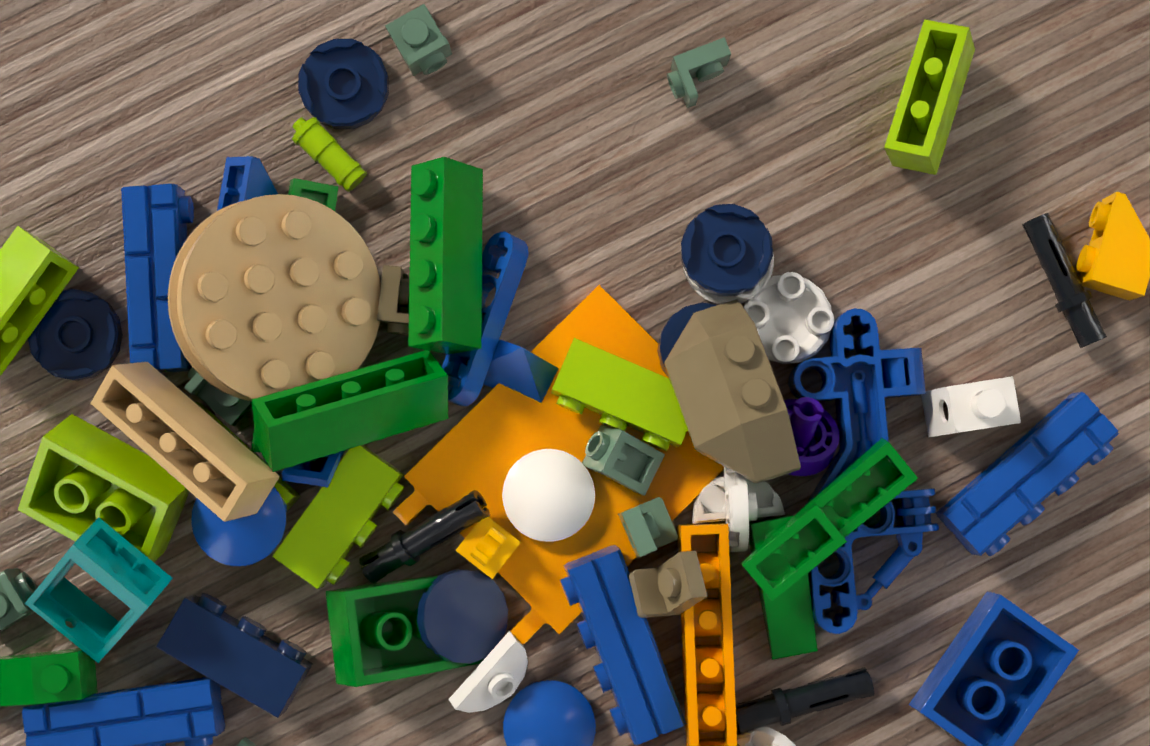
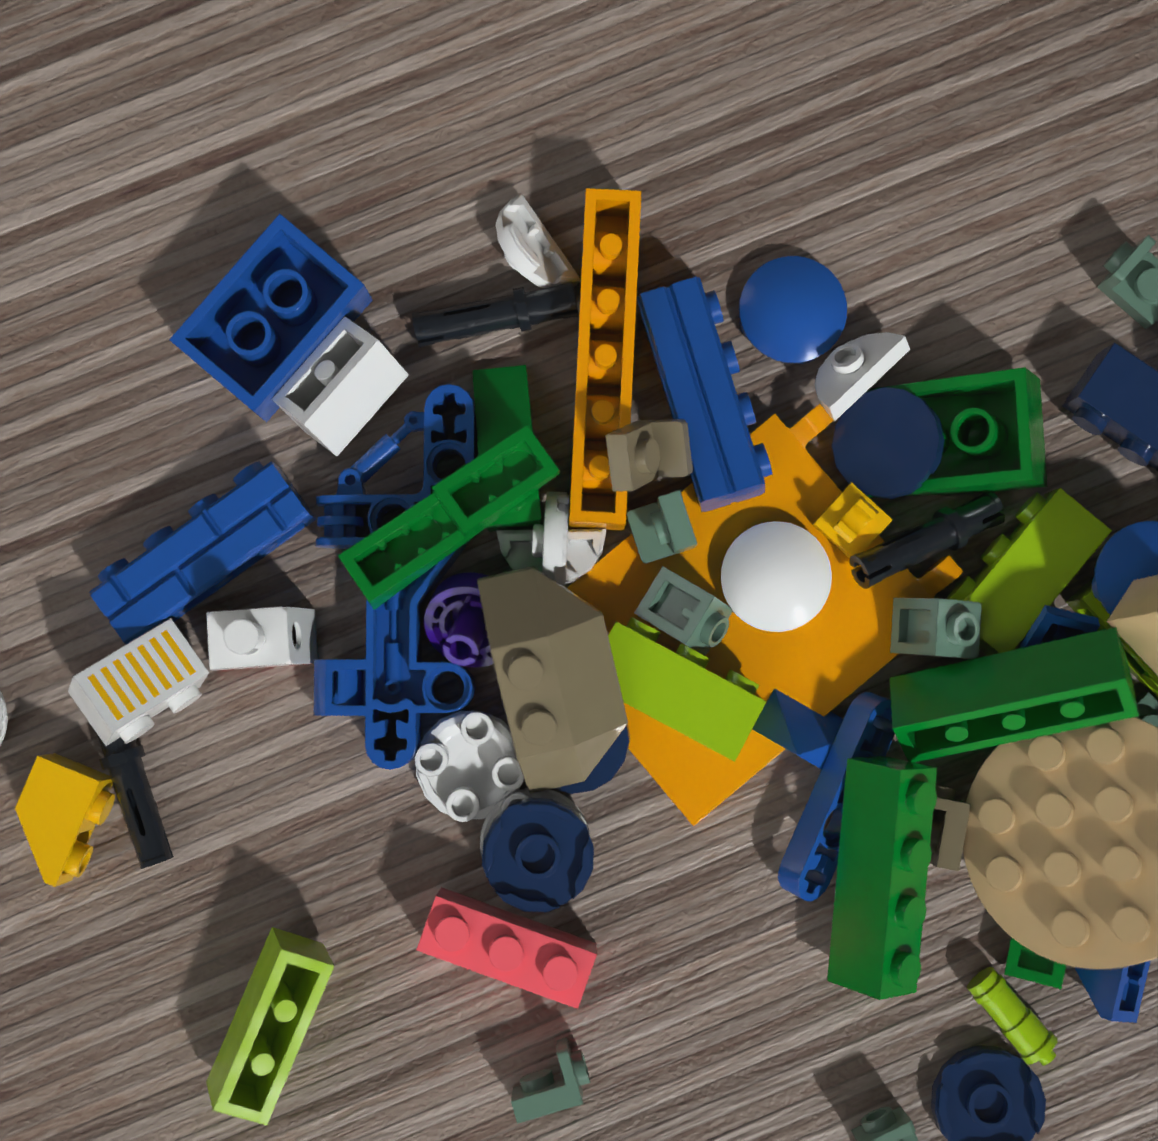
camera: 175 degrees left, 0 degrees up
(414, 462) = (936, 627): none -> sand green bracket
(744, 174) = (508, 947): none -> coral brick
(929, 624) = (340, 386): none -> white brick
(1068, 361) = (138, 683): none -> white brick

